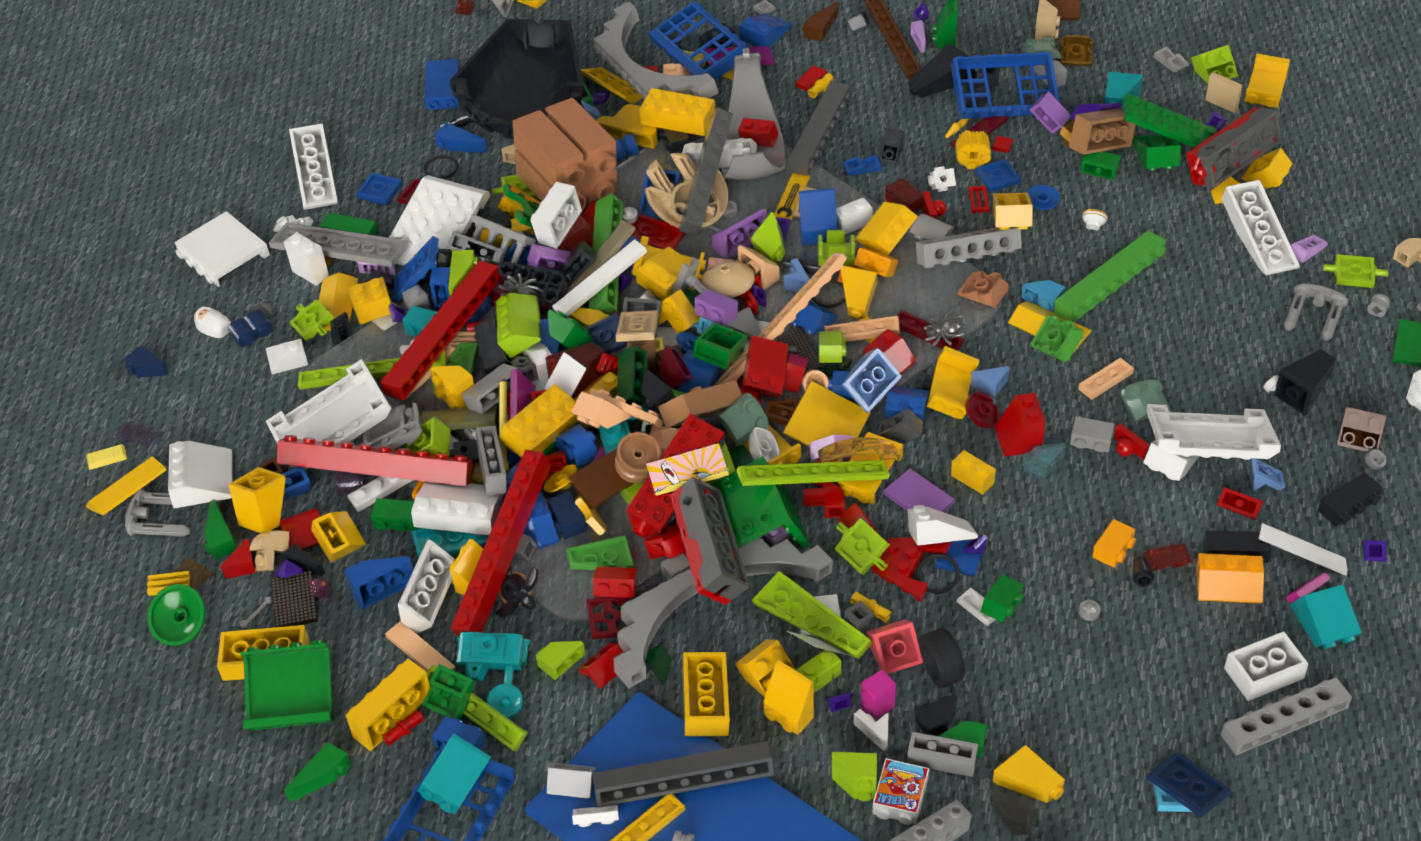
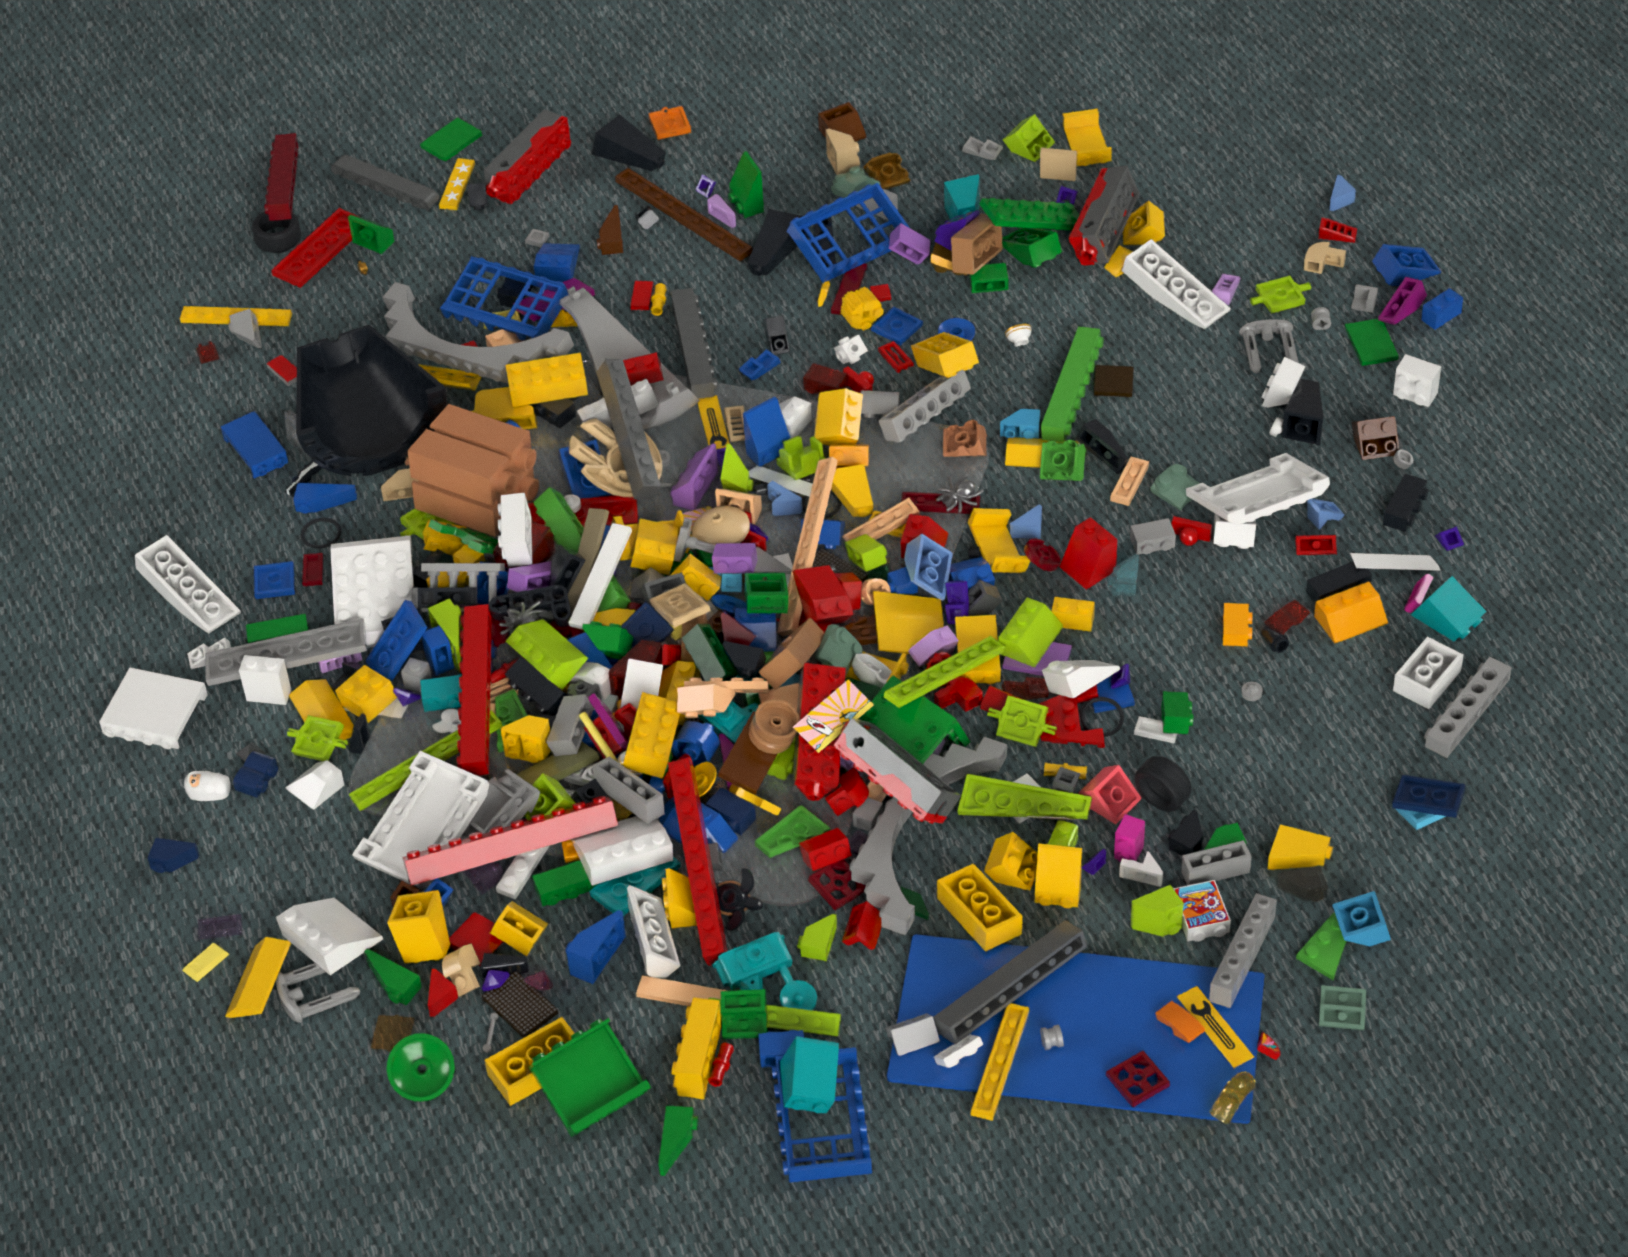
camera: 30 degrees left, 0 degrees up
(166, 580) = (379, 1043): yellow tile -> none
(805, 258) = (784, 480): none -> white sticker
(858, 446) = (948, 643): clear yellow slope -> none
(881, 418) = (957, 600): none -> dark purple slope
(893, 522) = (1029, 689): none -> clear red slope
(922, 472) = (1030, 632): none -> lime slope
(1101, 336) = (1102, 444): none -> black slope
(1152, 288) = (1113, 381): none -> dark brown tile
(1303, 343) = (1283, 383): none -> white slope

